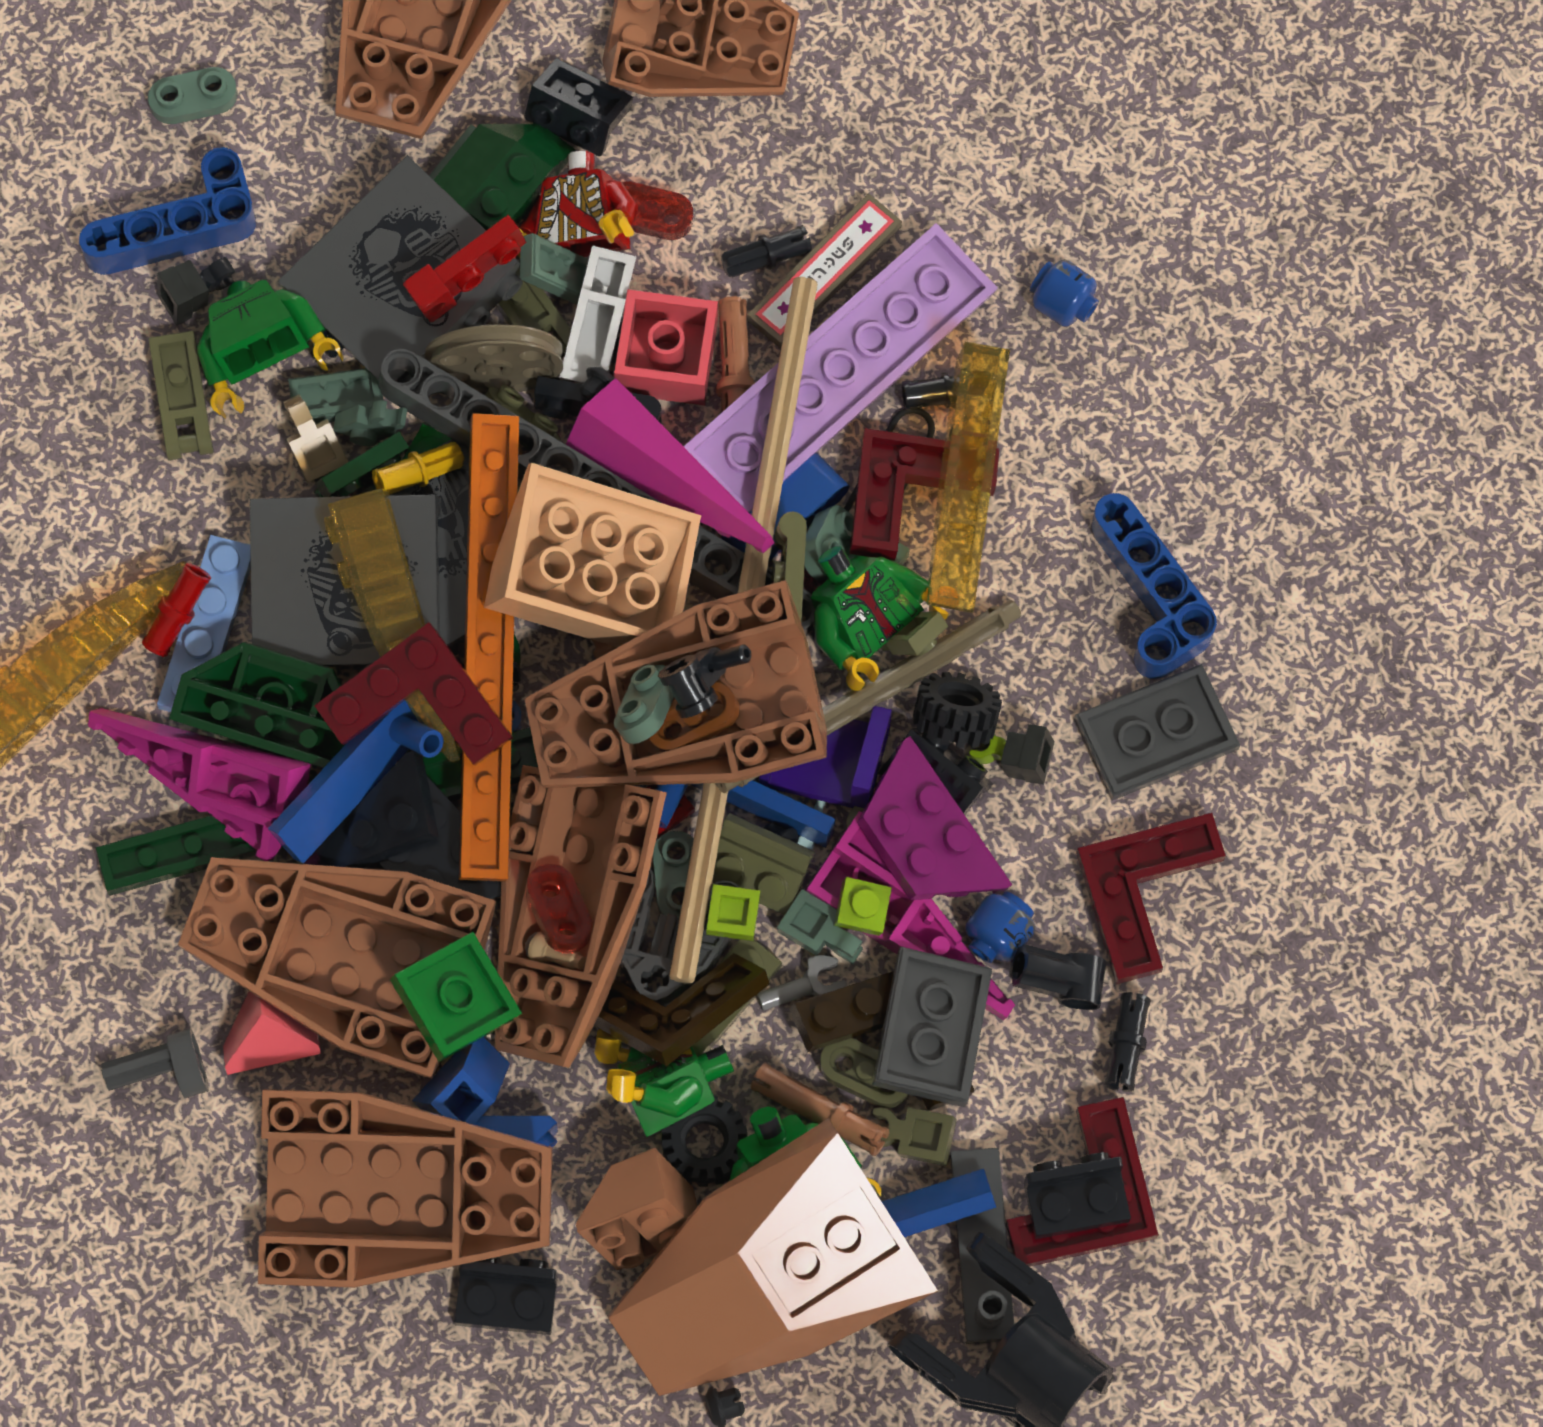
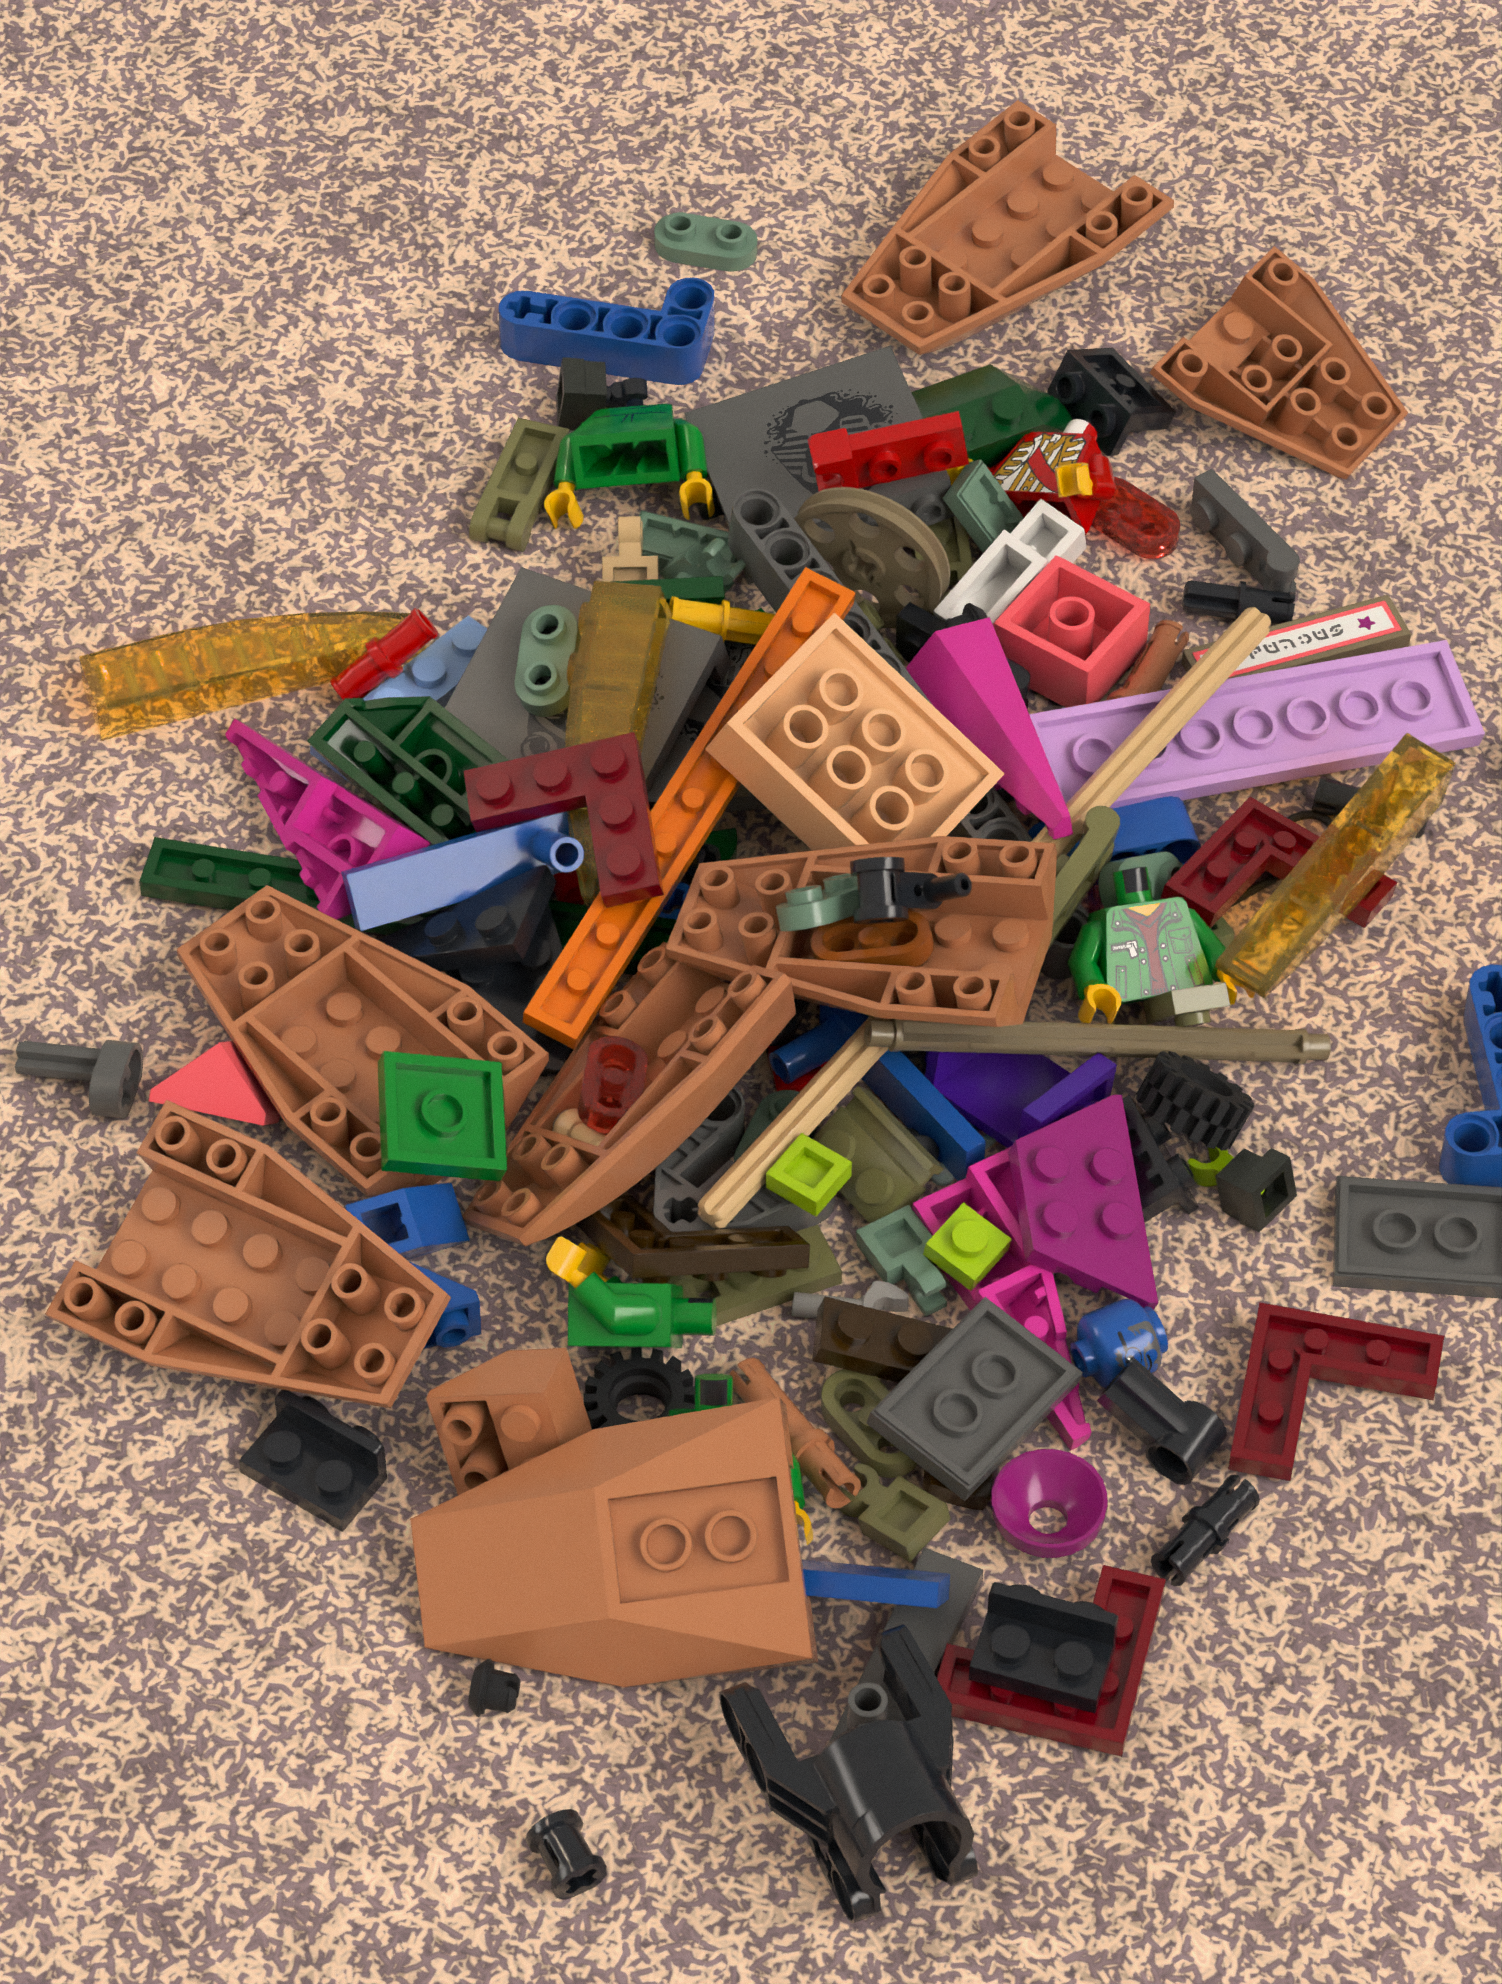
camera: 30 degrees right, 20 degrees down
(314, 570) = (546, 656): none -> sand green plate
(742, 191) = (1243, 533): none -> dark grey plate
(1023, 1055) = (1053, 1481): none -> magenta piece

